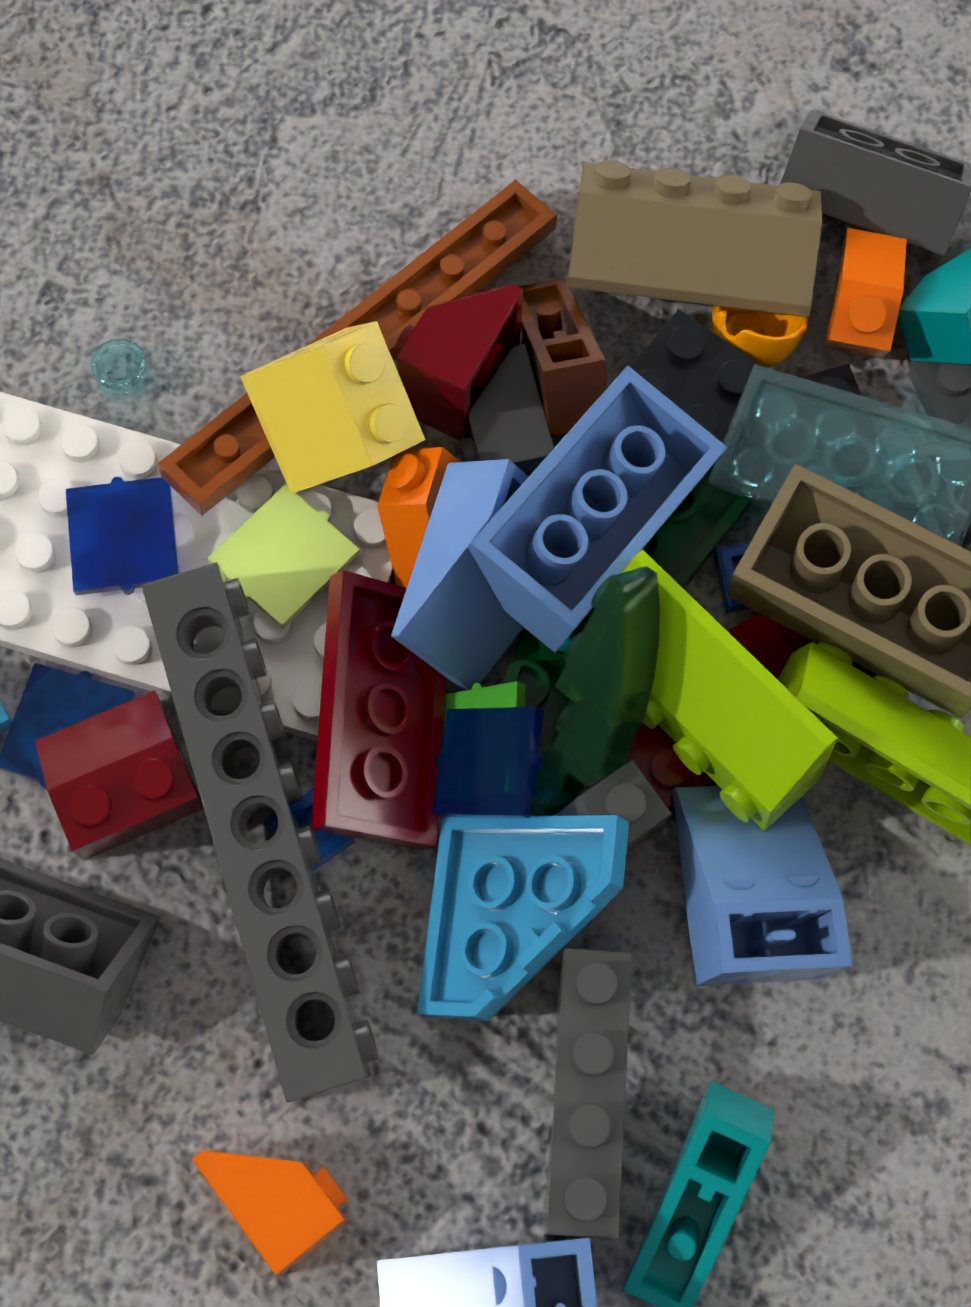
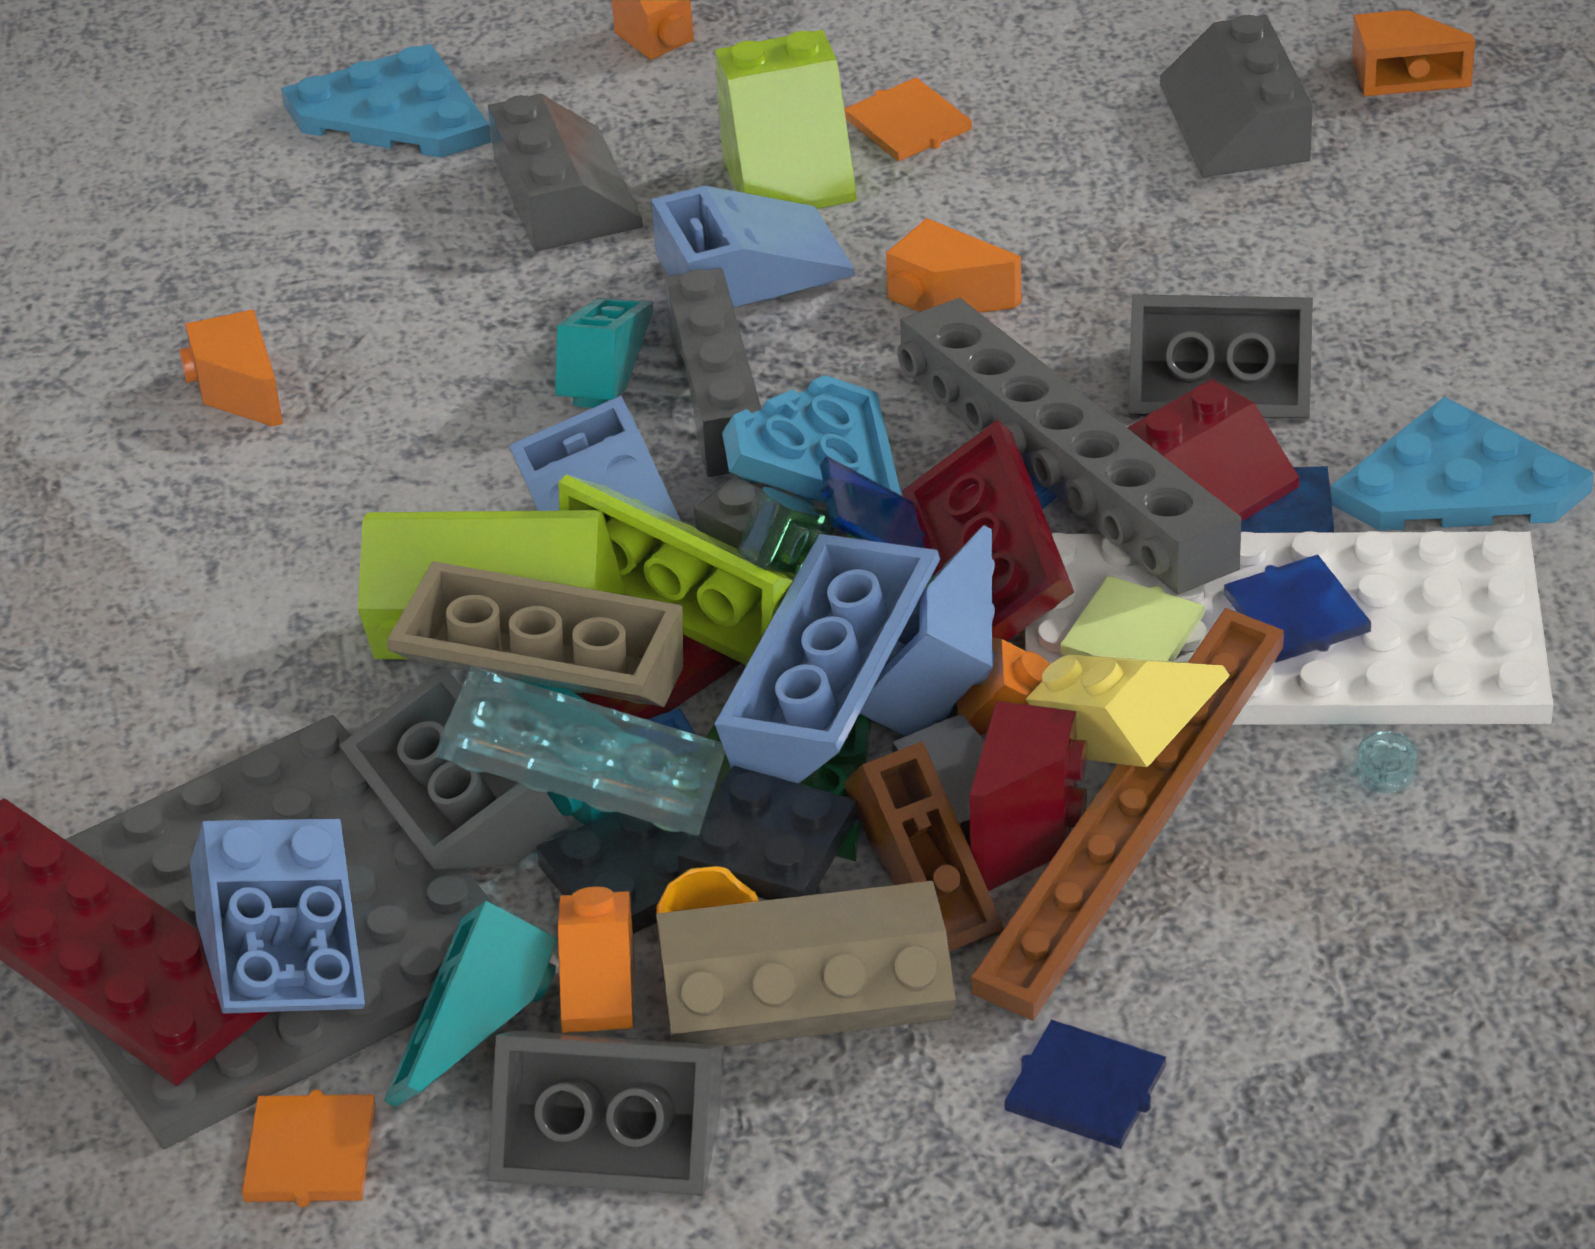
camera: 170 degrees right, 30 degrees down
(492, 131) = (1085, 1083): none -> clear blue piece

